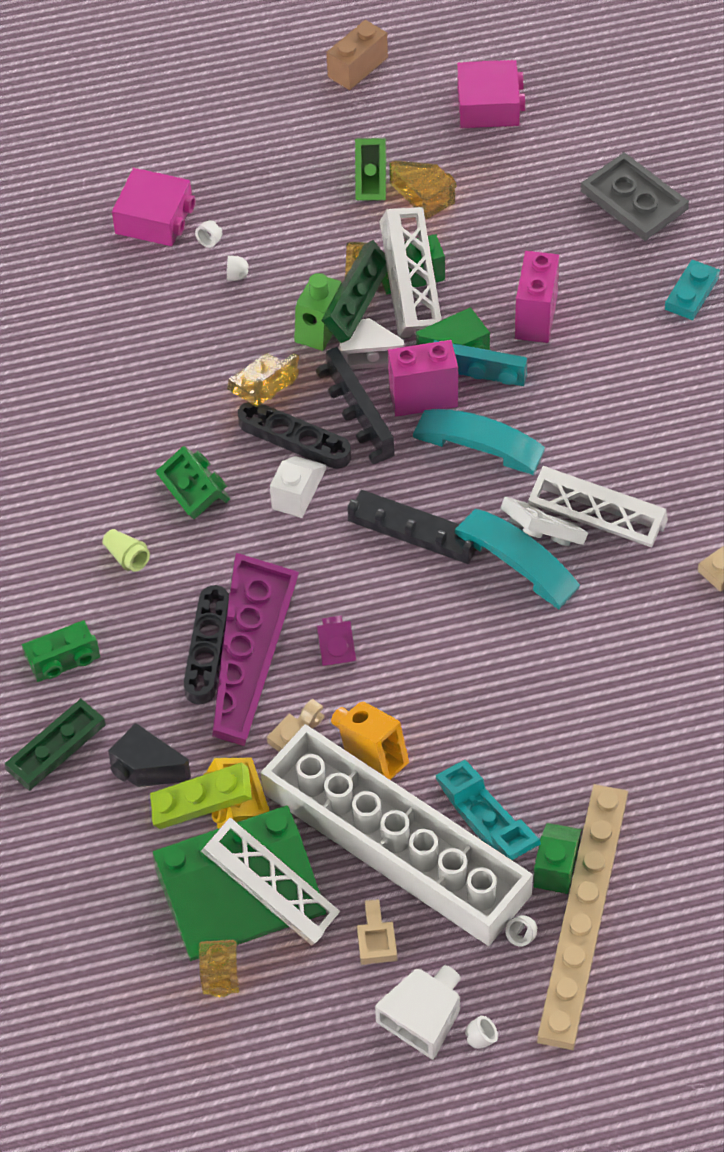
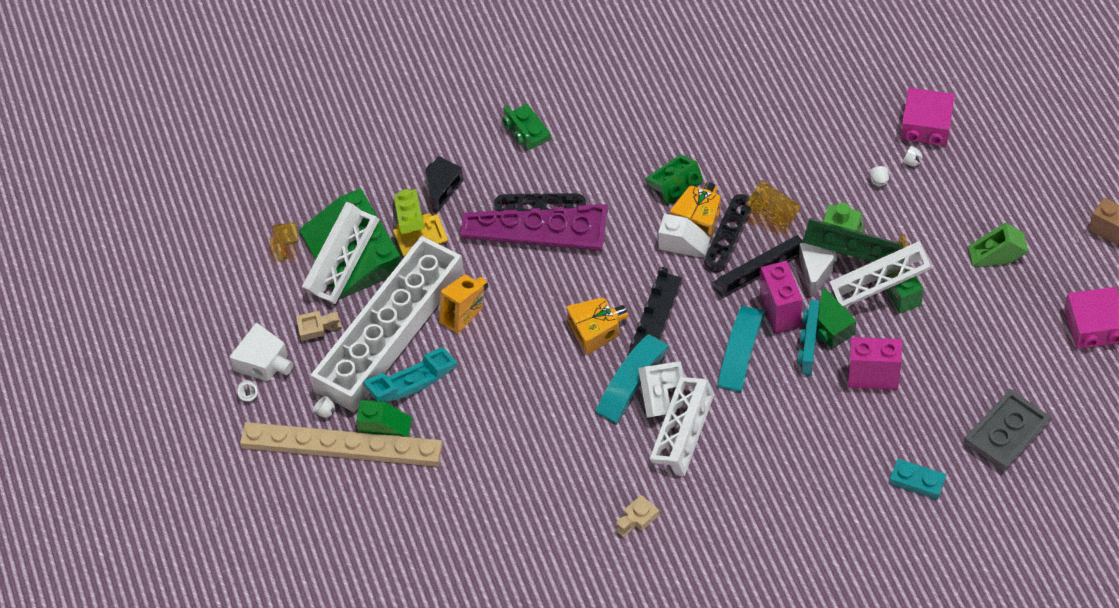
camera: 85 degrees right, 0 degrees up
(55, 744) = (450, 133): dark green plate -> none
(126, 550) = (610, 148): yellowish green cone -> none
(254, 458) = (700, 207): none -> light orange torso
(290, 725) = (476, 264): tan plate -> none
(336, 641) = (547, 275): magenta bracket -> none
(423, 185) = (983, 285): clear yellow slope -> none
(425, 590) = (595, 322): none -> light orange torso

